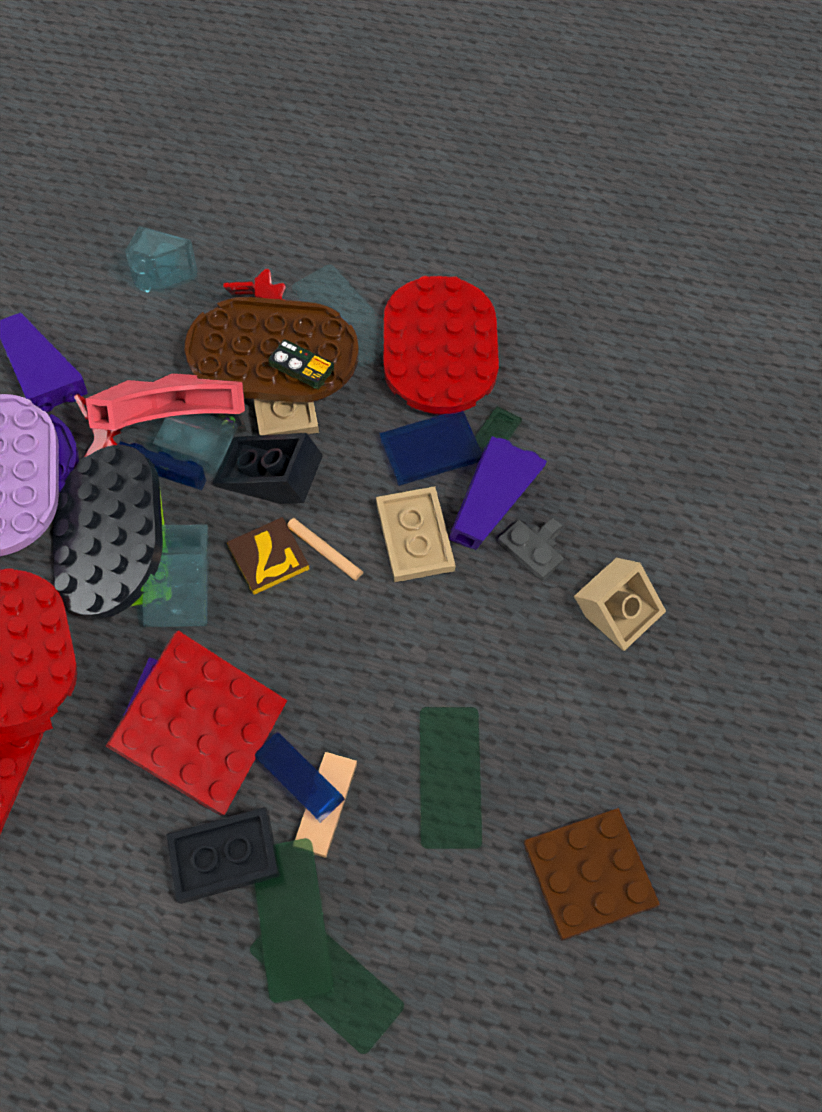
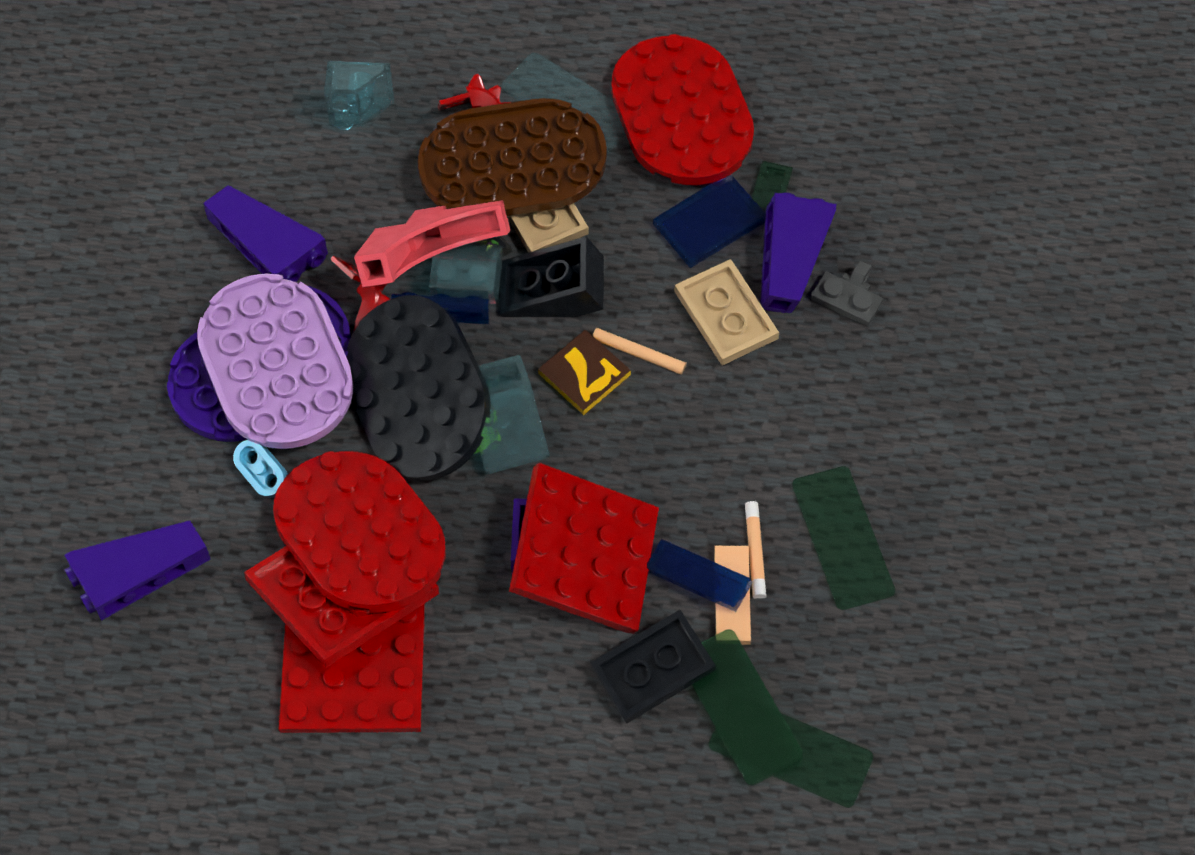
camera: 15 degrees left, 0 degrees up
(301, 364) = (553, 166): tile -> none
(363, 766) = (755, 550): none -> light nougat bar
(590, 874) = (1007, 589): reddish brown plate -> none
(621, 602) = (953, 326): tan slope -> none

